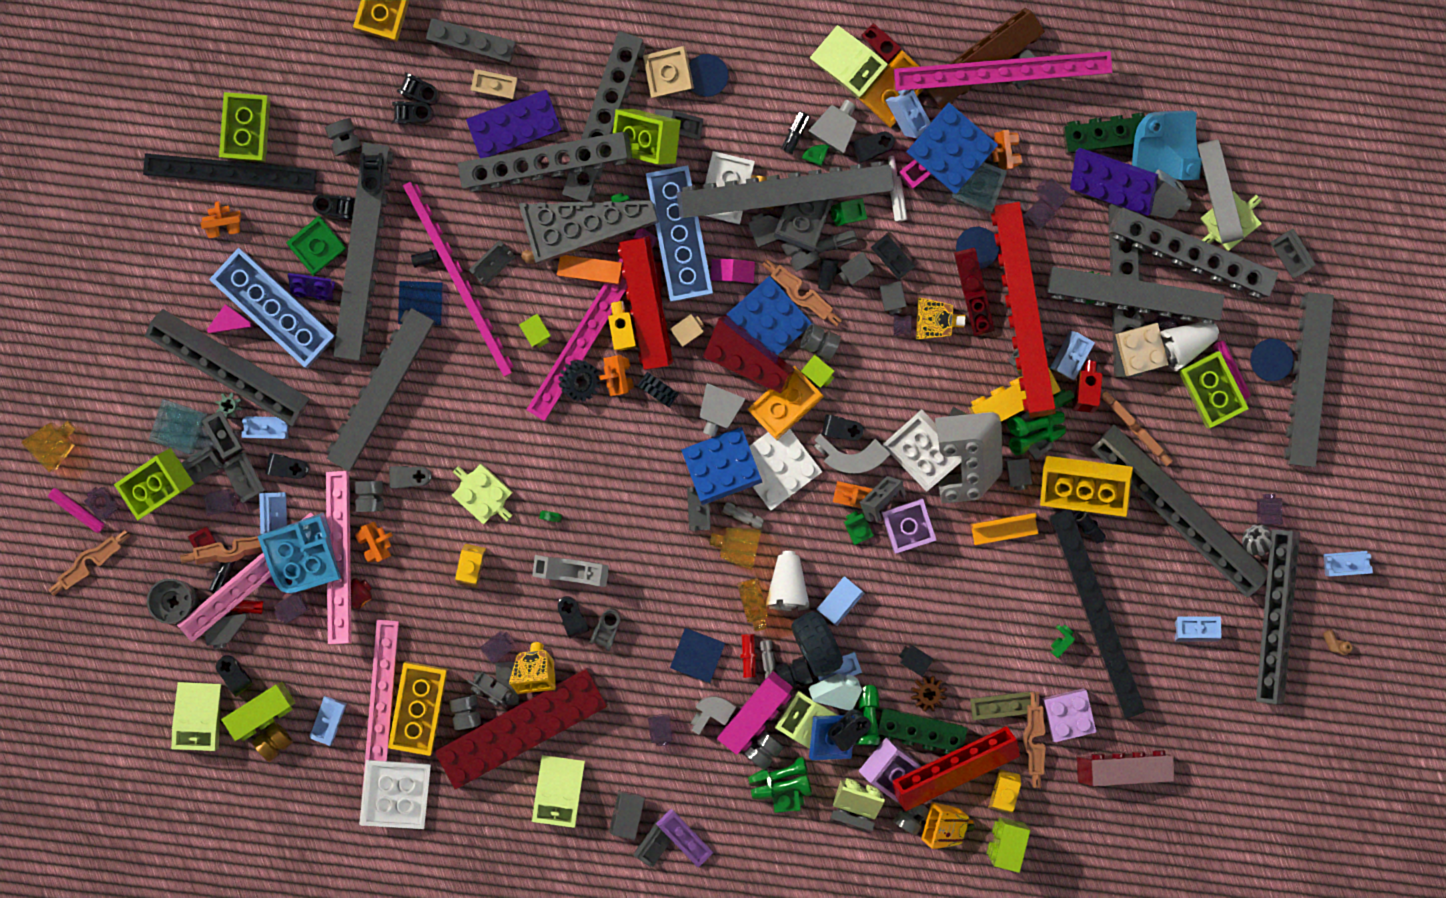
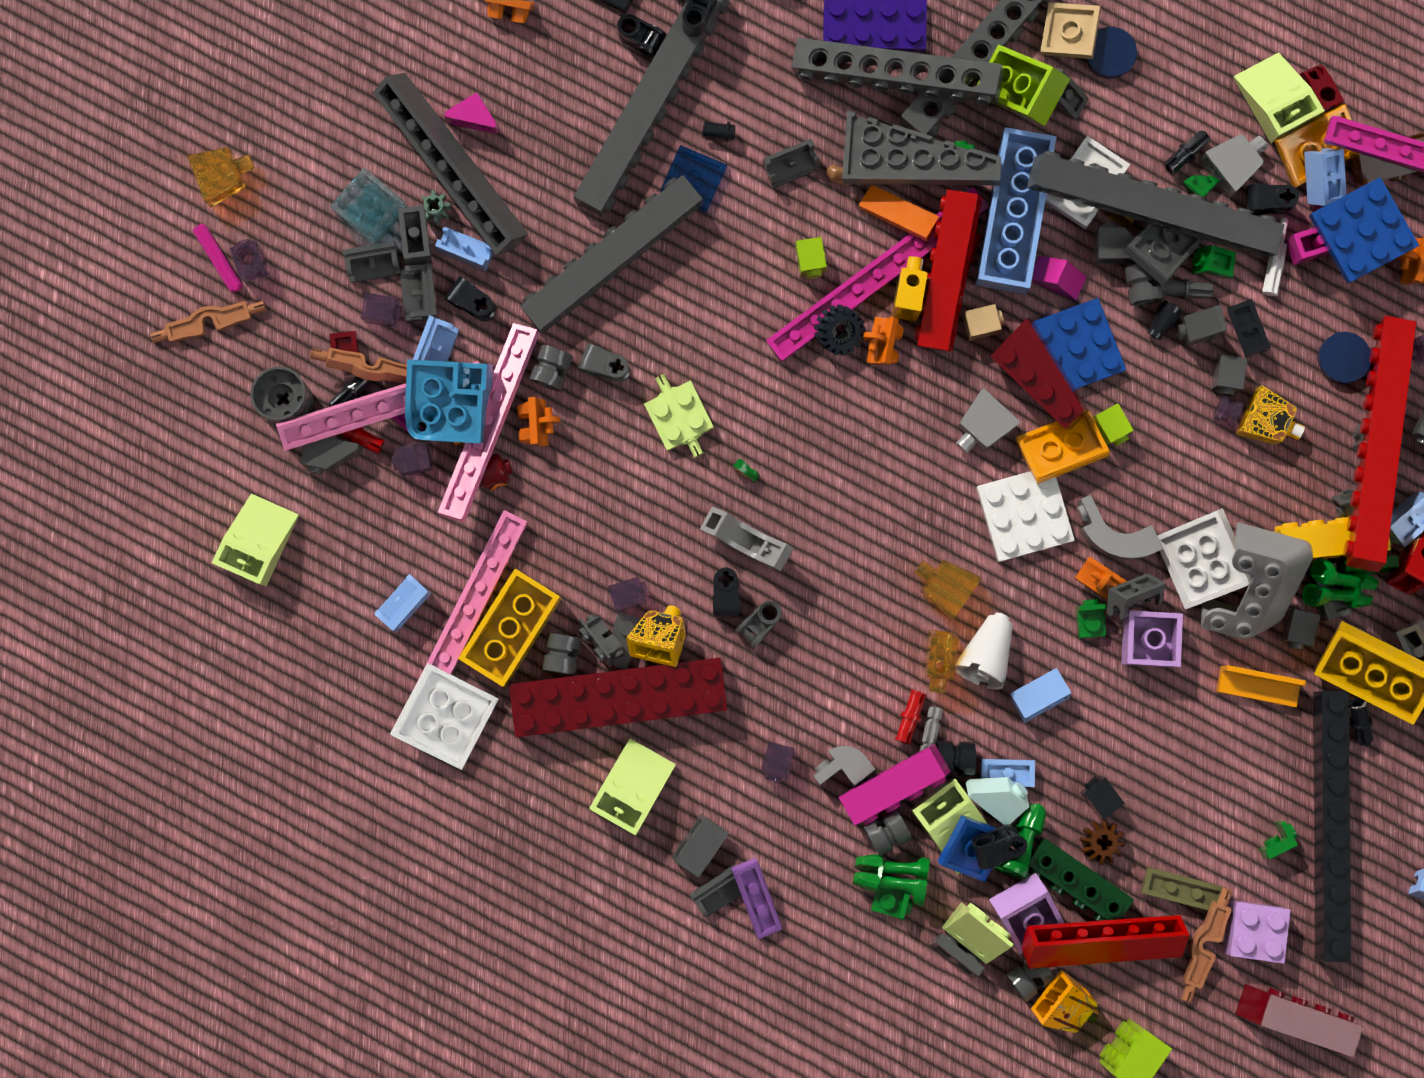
camera: 25 degrees right, 5 degrees down
(154, 484) = (315, 257): lime brick -> none
(236, 679) = (317, 514): black piece -> none
(259, 712) = (328, 560): lime brick -> none
(270, 743) = (329, 601): pearl gold wheel -> none
(273, 308) = (528, 118): light blue brick -> none
(311, 286) = (580, 110): dark purple hinge -> none
(316, 245) = (603, 72): green tile -> none
(454, 269) = (746, 156): dark pink plate -> none
(470, 565) = (633, 491): yellow torso -> none
(658, 389) = (924, 374): black bush -> none
(697, 655) = (852, 693): dark blue tile -> none
(698, 514) = (918, 527): dark grey hinge -> none
(721, 466) = (964, 488): blue plate -> none
(743, 515) = (964, 554): light grey axle -> none
(793, 284) = (1133, 344): nougat piece -> none
(817, 644) = (998, 732): black wheel -> none
(822, 342) = (1131, 395): dark grey wheel -> none
(838, 427) = (1112, 496): black piece -> none
(974, 291) = (1324, 403): dark red slope -> none
(981, 188) = (1377, 291): clear light blue brick -> none
(1005, 791) = (1149, 993): yellow torso -> none

